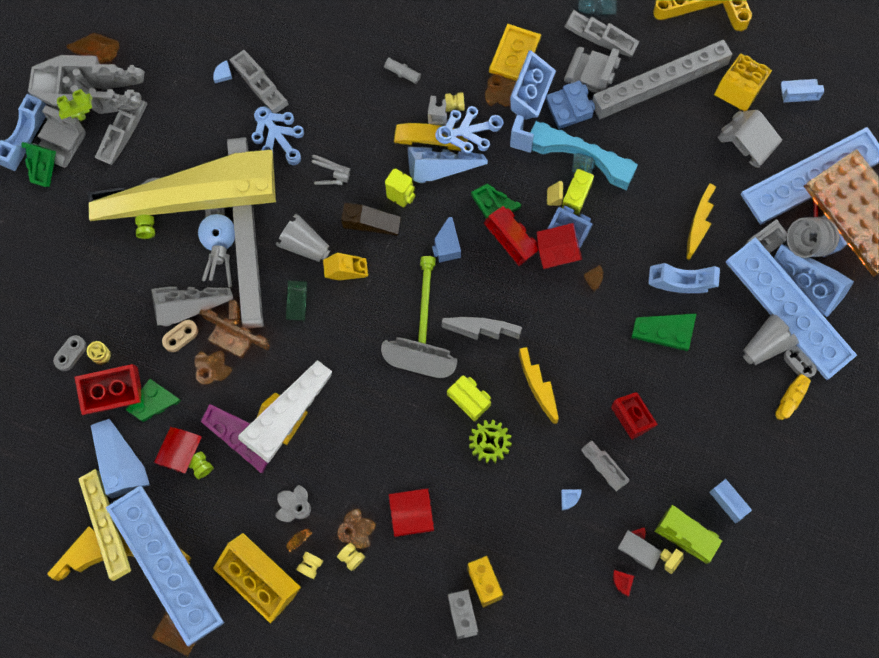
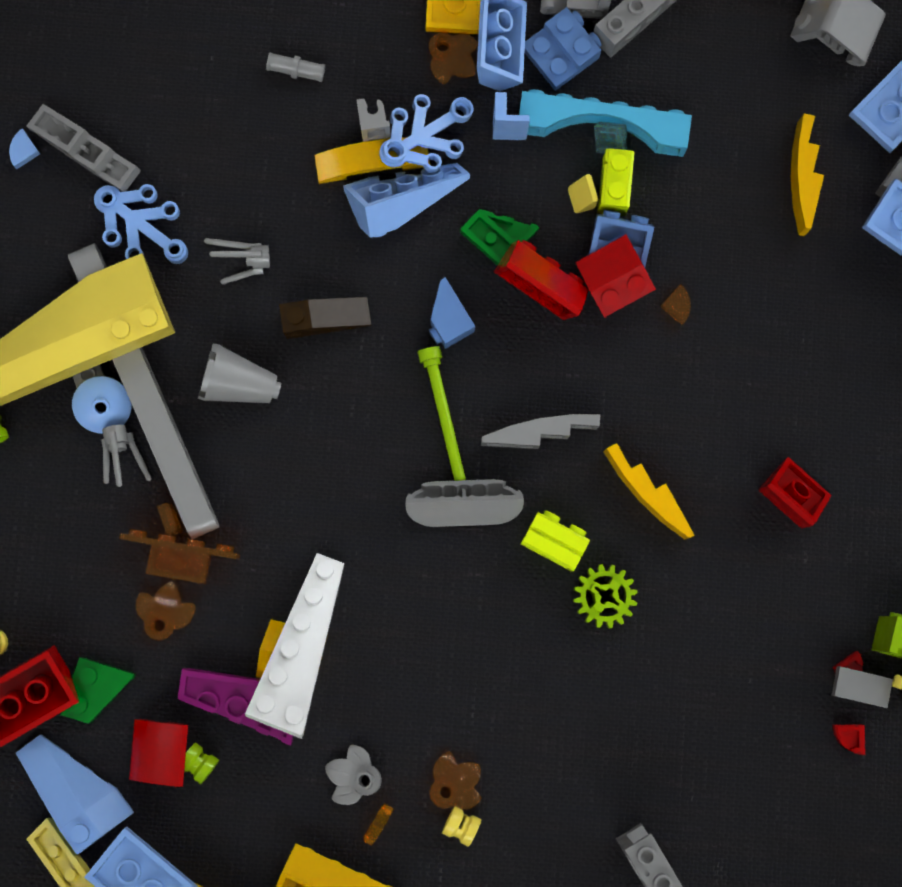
camera: 25 degrees left, 10 degrees up
(177, 305) = (85, 532): light grey wedge -> none
(179, 335) = (101, 578): tan plate -> none
(296, 300) = (255, 472): clear green slope -> none
(311, 560) = (406, 857): light yellow wheel -> none
(345, 267) = (311, 400): yellow slope -> none
(399, 188) = (354, 255): neon yellow brick -> none
(411, 512) = (525, 734): red slope -> none
(454, 102) = (391, 94): light yellow wheel -> none
(489, 589) = (665, 806): yellow window -> none
(570, 498) = (741, 641): light blue tile -> none
(605, 465) = (778, 580): light grey hinge -> none
(668, 330) = (805, 352): green wing -> none
(683, 281) = (811, 271): light blue arch -> none

